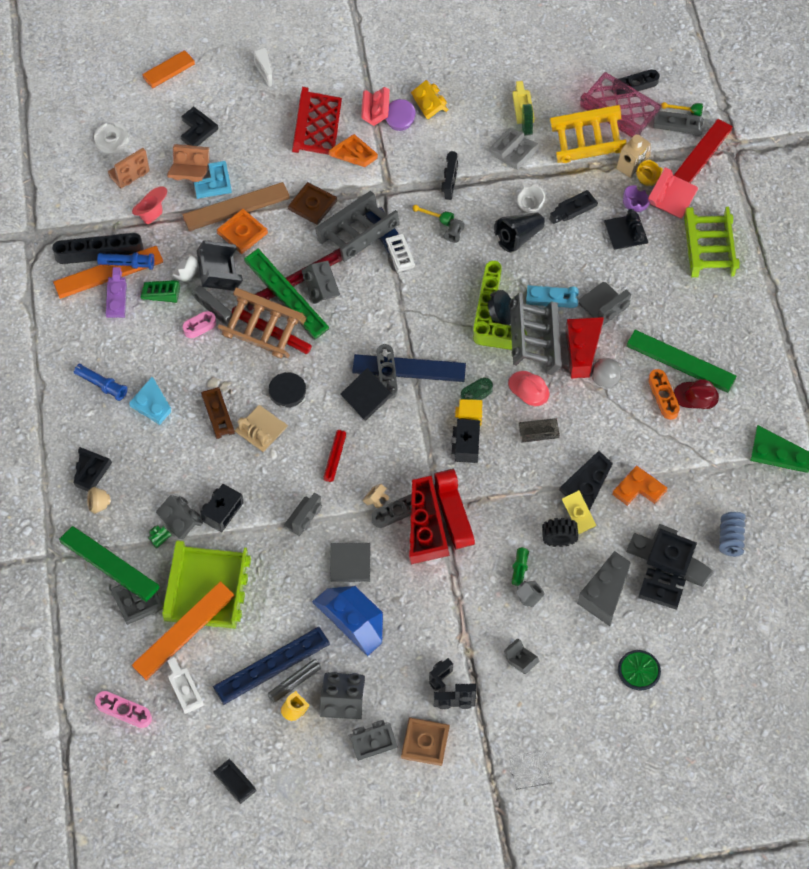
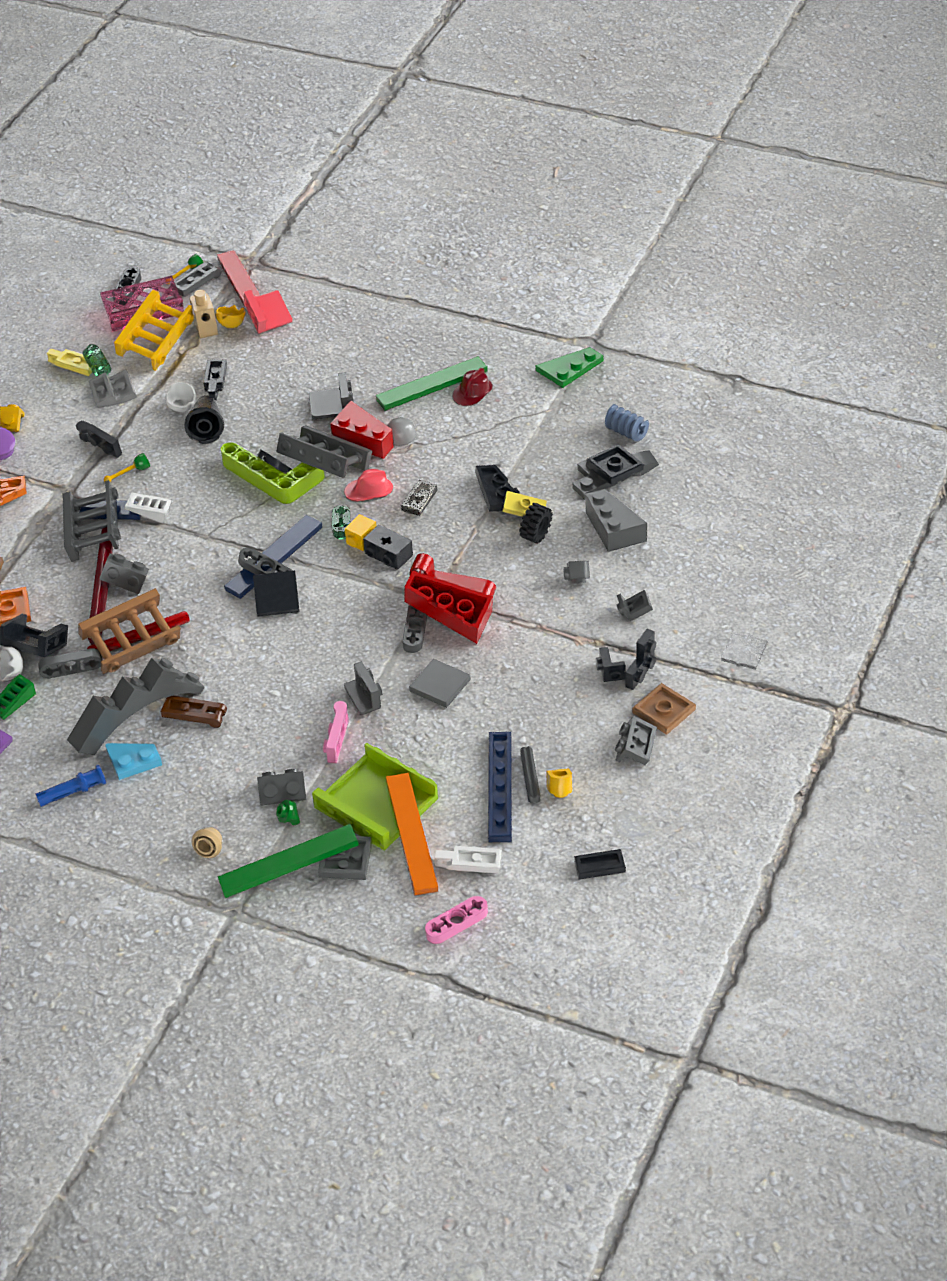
camera: 55 degrees left, 15 degrees down
(90, 469) = (164, 836): black wing -> none
(187, 365) = (130, 695): none -> dark grey arch
(199, 324) = (76, 685): bright pink beam -> none
(221, 507) = (302, 749): black brick -> none
(252, 521) = (336, 732): none -> bright pink plate
(260, 428) = (240, 687): tan hinge -> none
(285, 292) = (102, 601): green tile -> none
(287, 389) = (215, 650): black tile -> none
(312, 203) = (27, 547): reddish brown tile -> none
(334, 456) = (319, 646): red axle -> none
(342, 695) = (578, 741): dark grey bracket -> none
(353, 616) = (497, 703): blue wedge -> none
(374, 495) = (388, 633): tan tile -> none
(454, 230) = (163, 464): dark grey bush -> none
(520, 566) = (543, 568): green axle -> none
(544, 295) = (291, 428): medium azure plate -> none
(626, 231) = (271, 356): black hinge -> none
(635, 199) = (248, 336): medium lavender hair -> none
(639, 482) = (527, 460): orange plate -> none
(639, 670) = (703, 540): green wheel -> none
(659, 592) = (640, 489): black plate -> none
(664, 386) = (467, 408): orange beam -> none
(695, 249) = (330, 324): lime fence -> none

